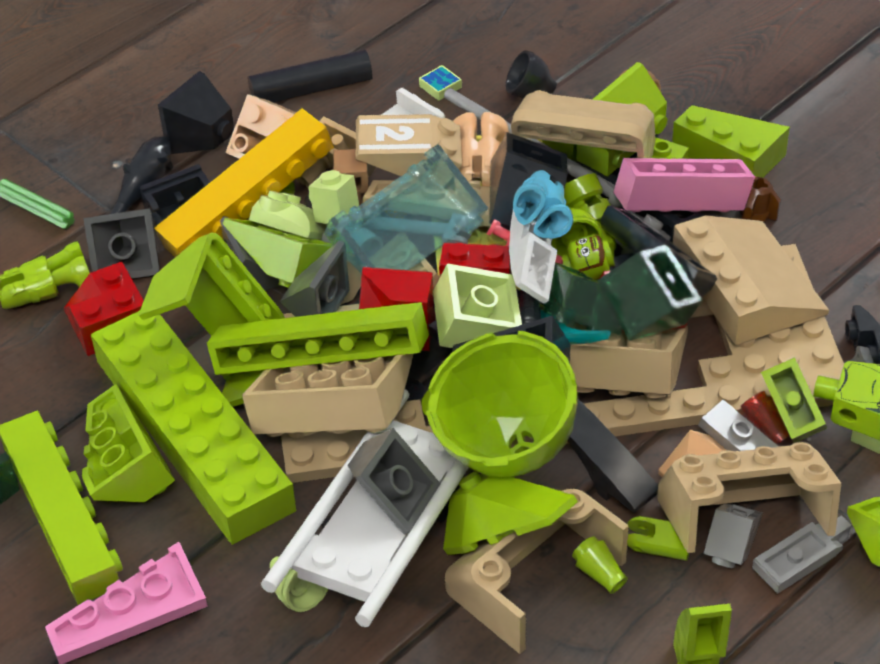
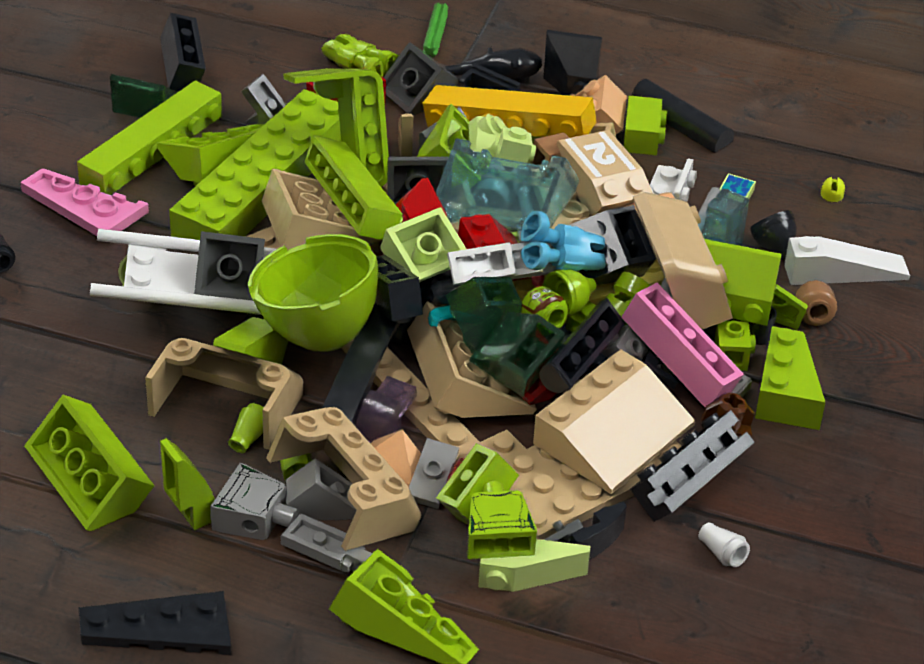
camera: 60 degrees right, 5 degrees down
(76, 382) = (263, 100): none -> flat silver slope
(314, 99) = (644, 125): none -> lime brick
(479, 23) = (838, 191): none -> neon yellow hinge
(507, 90) = (726, 218): none -> clear light blue brick
(586, 58) = (840, 262): none -> white slope
(640, 437) = (384, 408): none -> clear purple brick
(720, 583) = (251, 505): none -> light grey torso
(819, 246) = (690, 466): none -> brick

